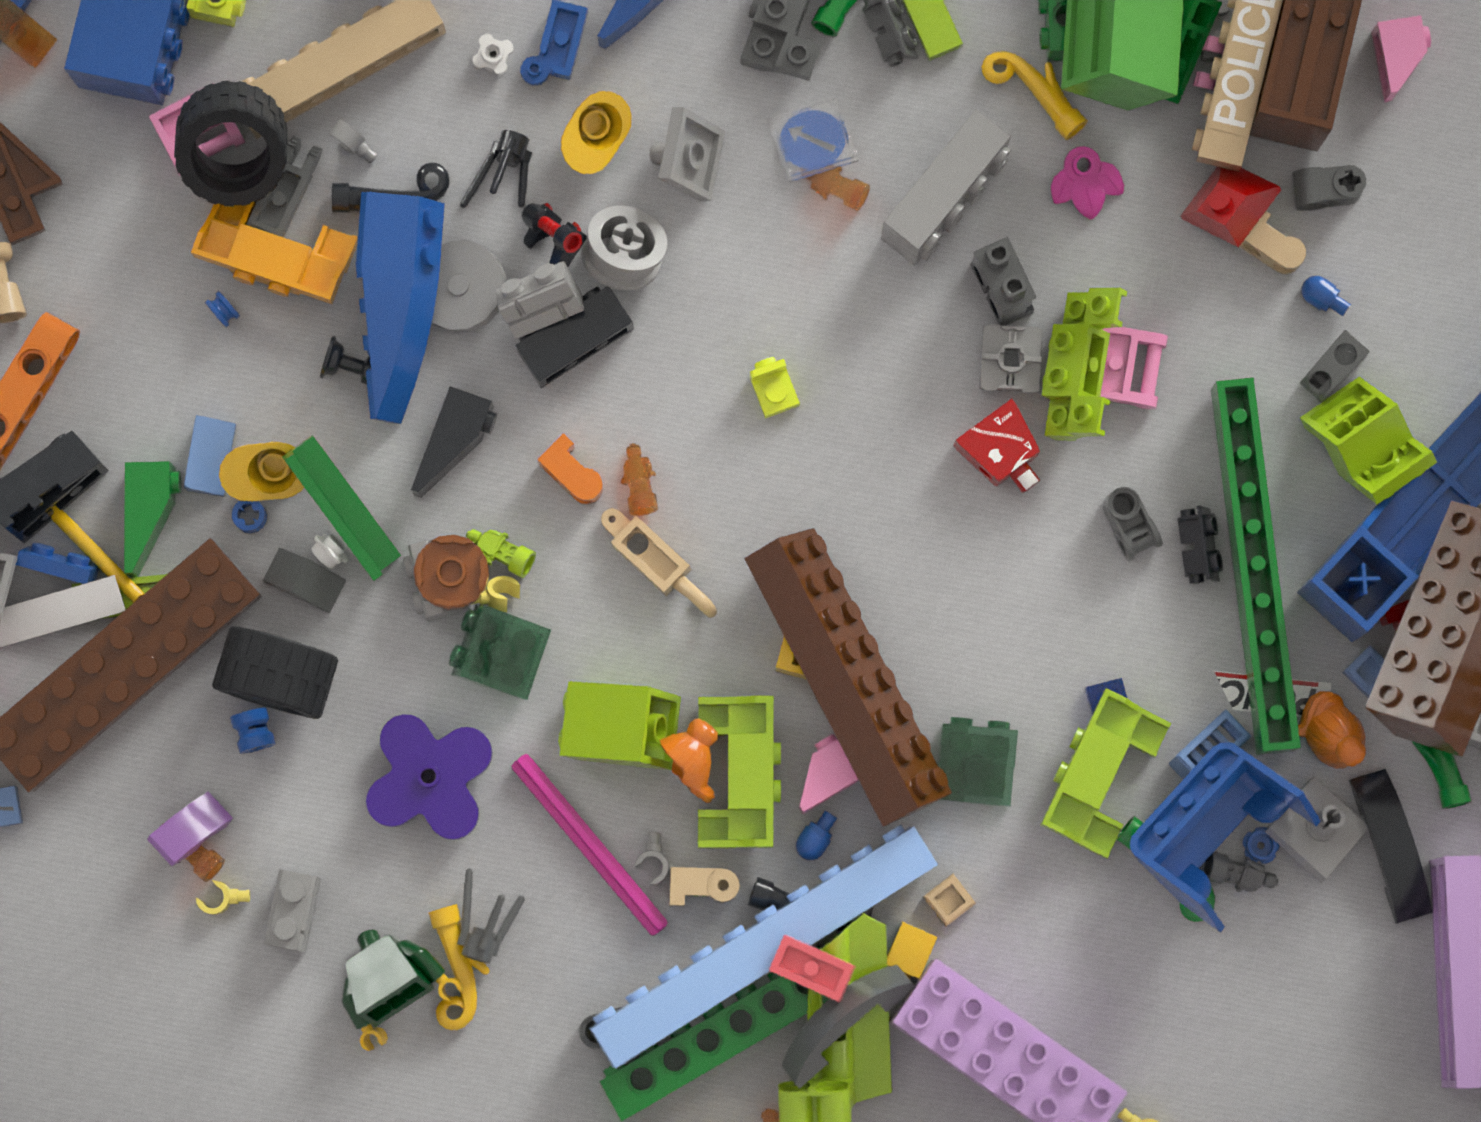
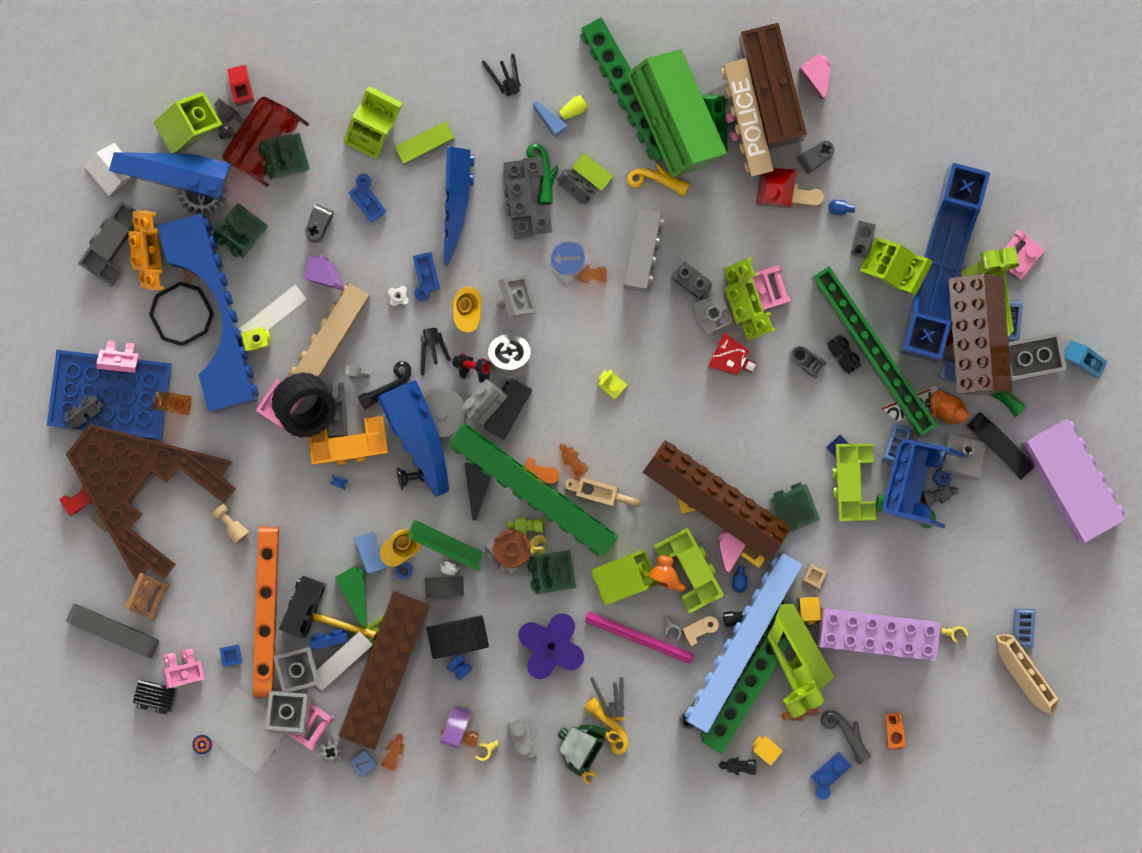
camera: 30 degrees left, 5 degrees up
(67, 812) = (395, 749): none -> clear orange piece
(542, 491) = (533, 489): none -> green brick
(812, 968) = (771, 641): coral plate -> none
(835, 1018) = (794, 655): dark grey slope -> none
(859, 807) = (752, 556): none -> yellow panel
(1088, 187) = (706, 214): dark pink plate -> none

